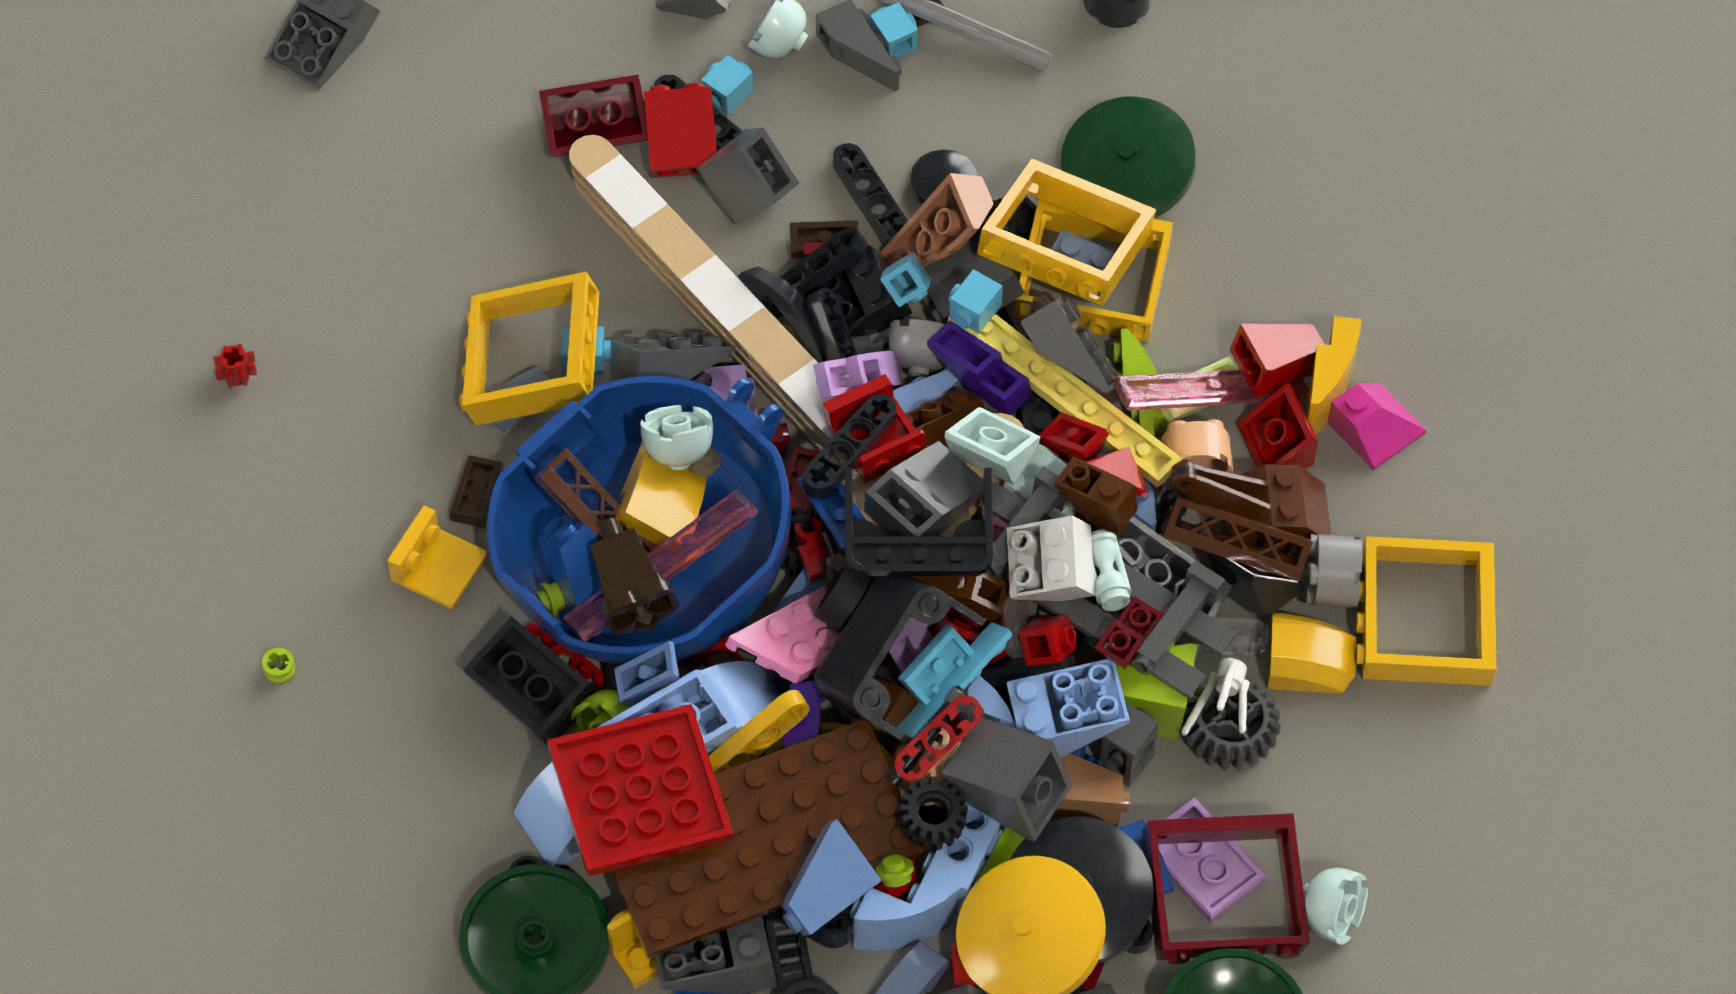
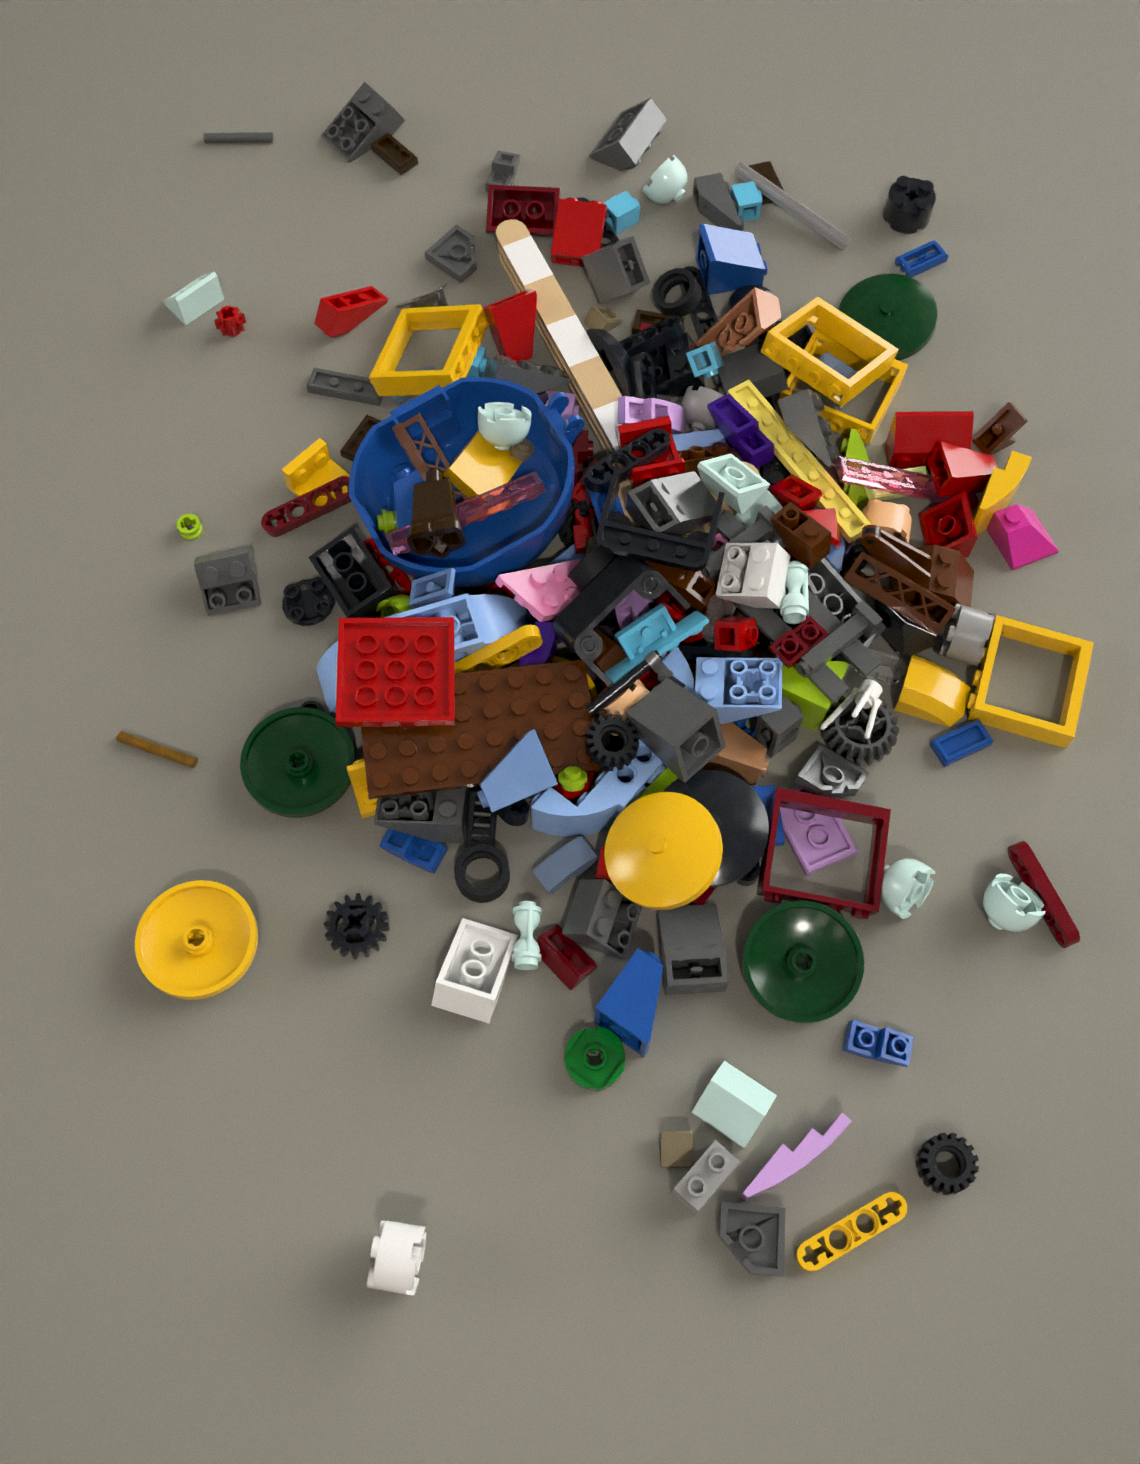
camera: 15 degrees right, 5 degrees up
(147, 87) = (238, 137): none -> dark grey bar
(171, 341) = (195, 298): none -> light aqua slope
(340, 967) = (157, 749): none -> pearl gold bar
(358, 725) = (227, 580): none -> dark grey slope
(381, 65) = (394, 153): none -> dark brown plate
(394, 312) = (346, 310): none -> red slope
(421, 422) = (343, 386): none -> dark grey tile
(438, 605) = (311, 511): none -> dark red beam
(473, 728) = (307, 602): none -> black dish
(500, 275) = (431, 299): none -> clear smoke piece
(514, 196) = (454, 253): none -> dark grey plate
(542, 59) = (503, 169): none -> dark grey slope
(634, 286) = (514, 324): none -> red slope
(745, 247) = (602, 318): none -> dark tan slope
(822, 172) = (667, 282): none -> black tyre
(895, 123) = (728, 259): none -> blue slope
(964, 725) = (645, 667): red beam -> none
(975, 301) = (749, 381): medium azure brick -> none
(1145, 83) = (924, 260): none -> blue tile
(1208, 320) = (917, 434): none -> red slope
(1209, 789) = (830, 775): none -> dark grey plate
(1313, 286) = (999, 430): none -> reddish brown slope
(1361, 710) = (961, 743): none -> blue tile
(1466, 895) = (1011, 905): none -> light aqua cylinder
(1502, 872) = (1034, 876): none -> dark red beam

